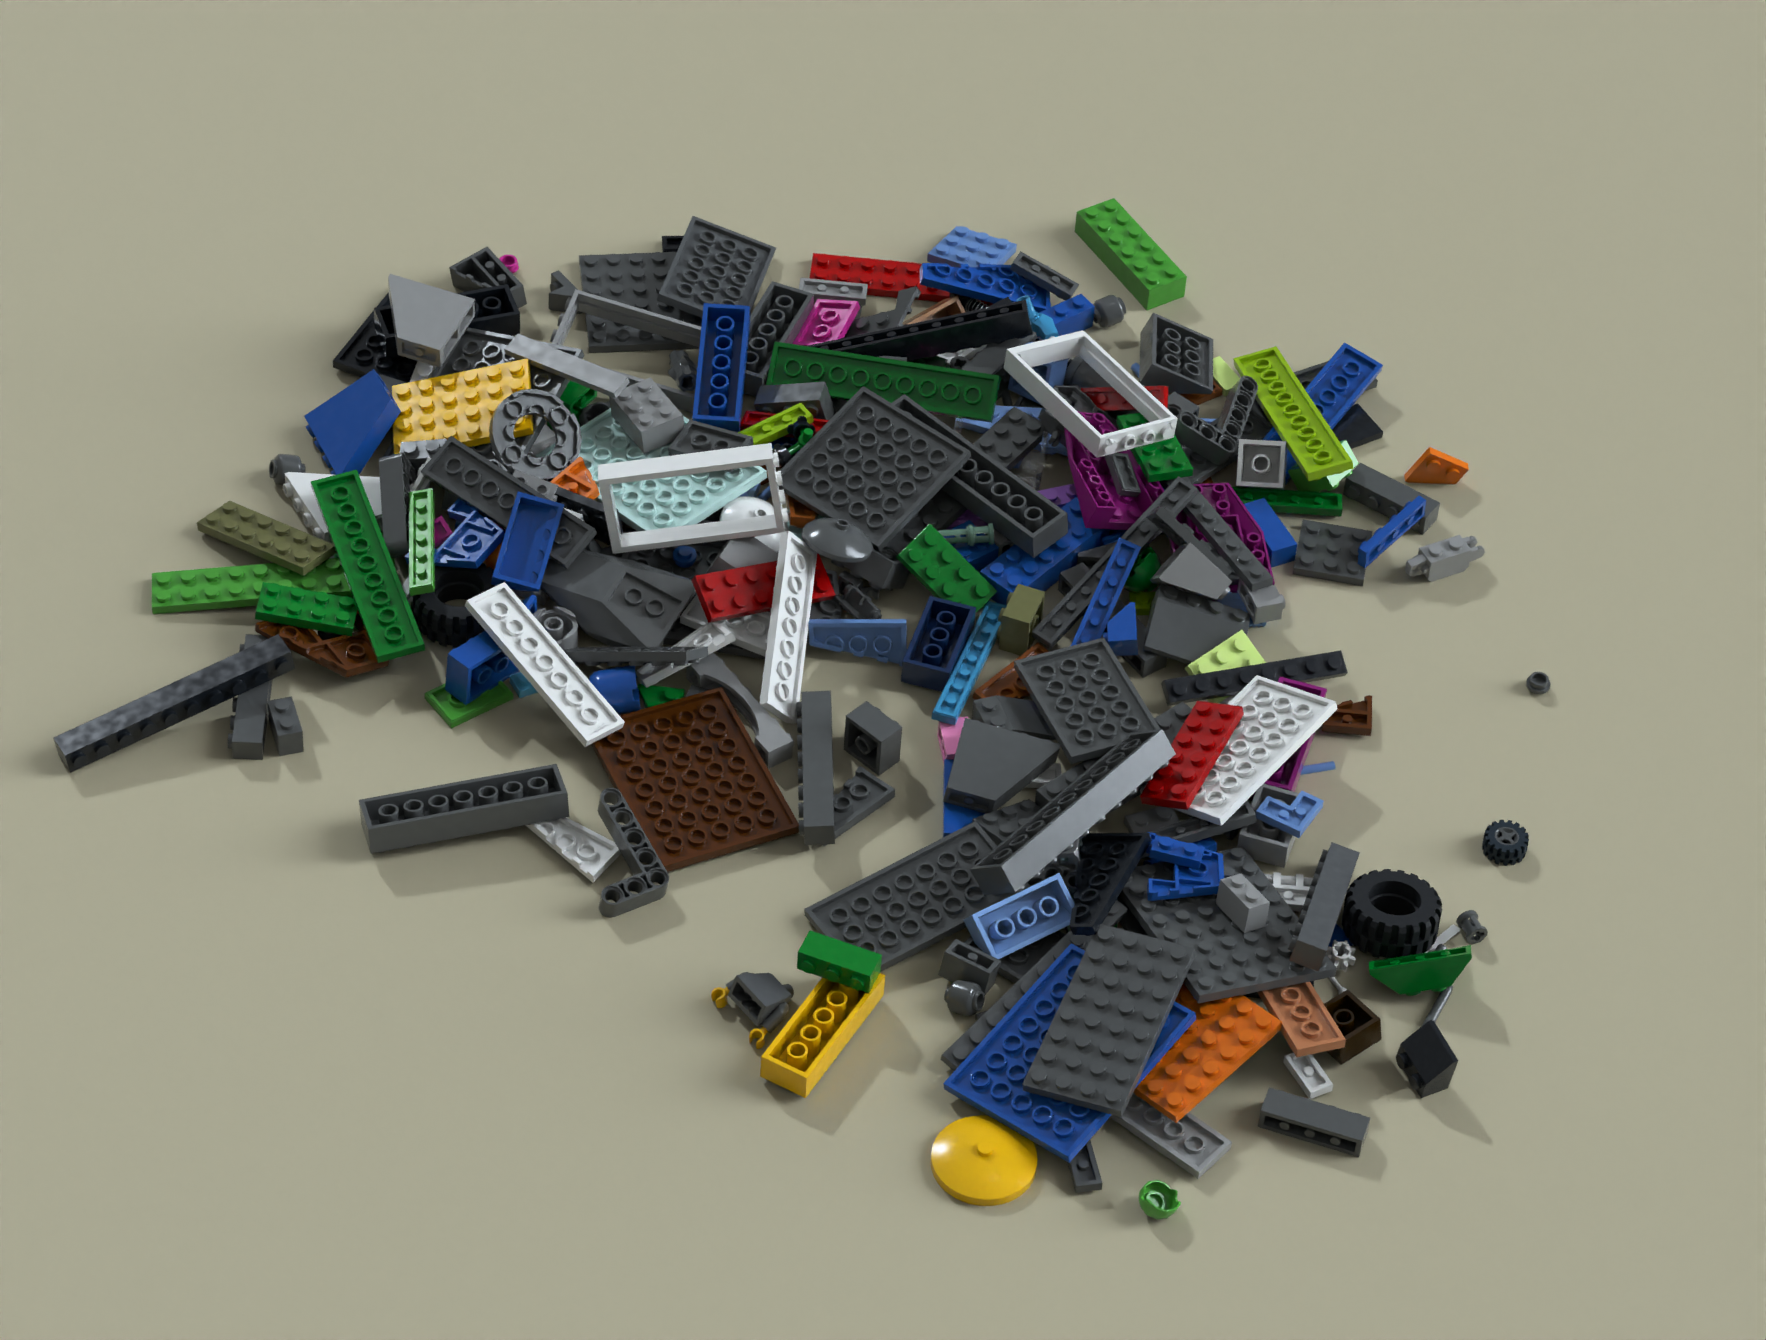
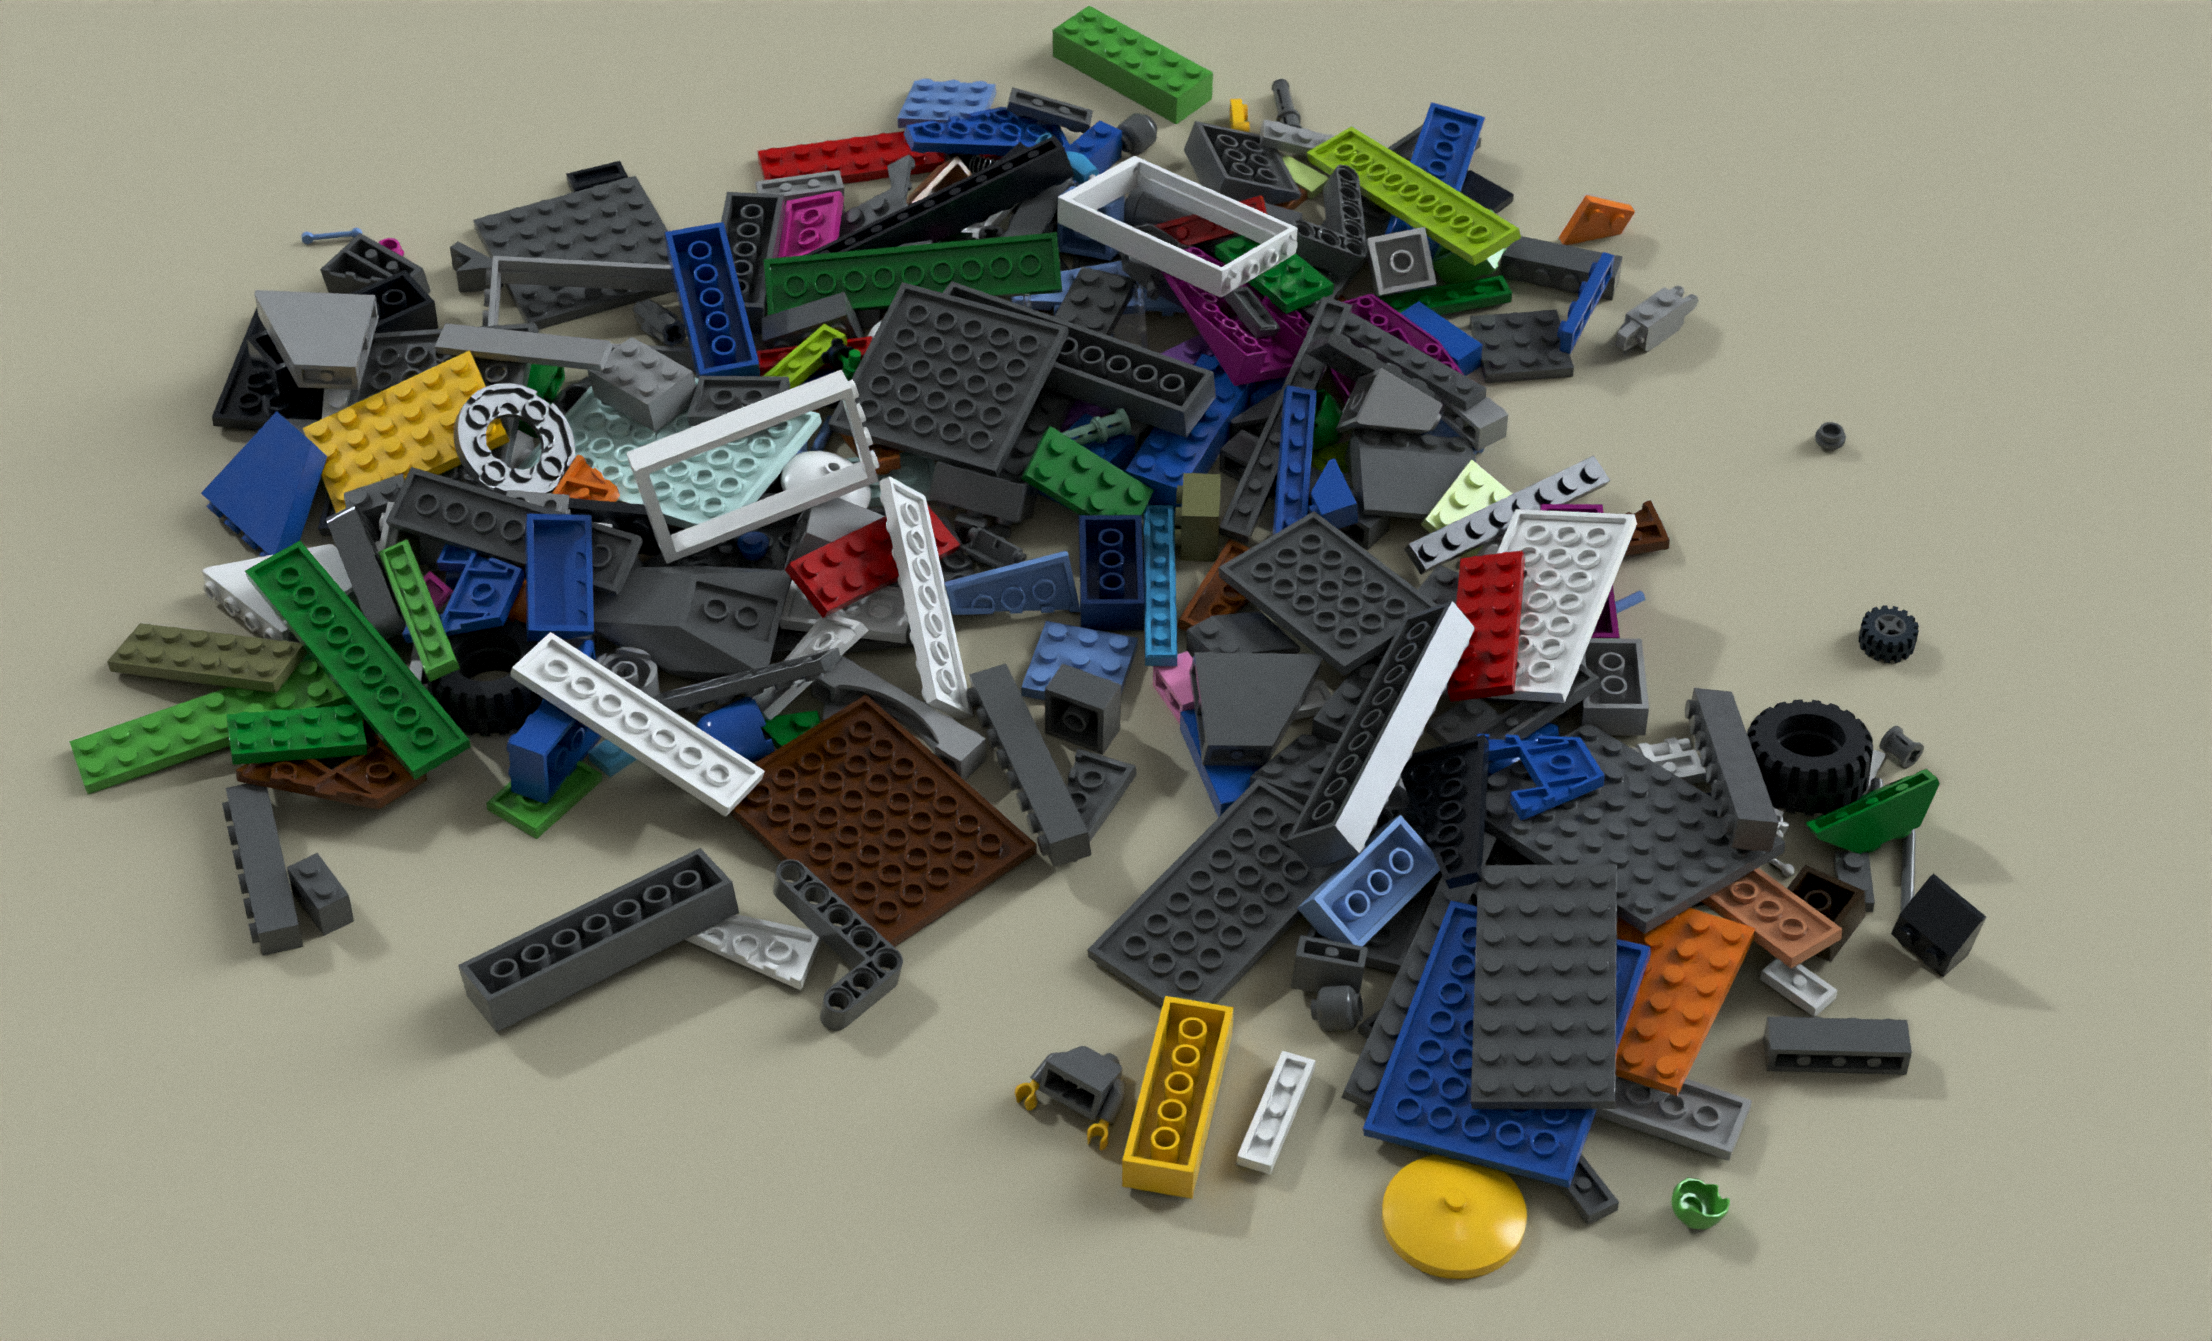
camera: 15 degrees left, 0 degrees up
(174, 703) = (160, 904): black brick -> none
(282, 464) = (195, 560): dark grey head -> none
(452, 239) = (308, 237): none -> medium blue hinge
(715, 268) = (649, 193): dark grey plate -> none
(837, 540) = (946, 474): dark grey dish -> none
(839, 961) = (1172, 1006): green brick -> none
(889, 1056) = (1276, 1112): none -> white plate
(895, 699) = (1083, 648): none -> medium blue plate
(1177, 852) = (1528, 749): blue plate -> none
(1195, 313) = (1238, 114): none -> yellow plate
(1226, 343) = (1290, 138): none -> light grey plate
(1233, 327) = (1284, 103): none -> dark grey pin
(1242, 903) = (1639, 791): light grey brick -> none
(1292, 818) = (1640, 671): medium blue plate -> none
(1389, 1010) = (1856, 871): none -> dark grey plate

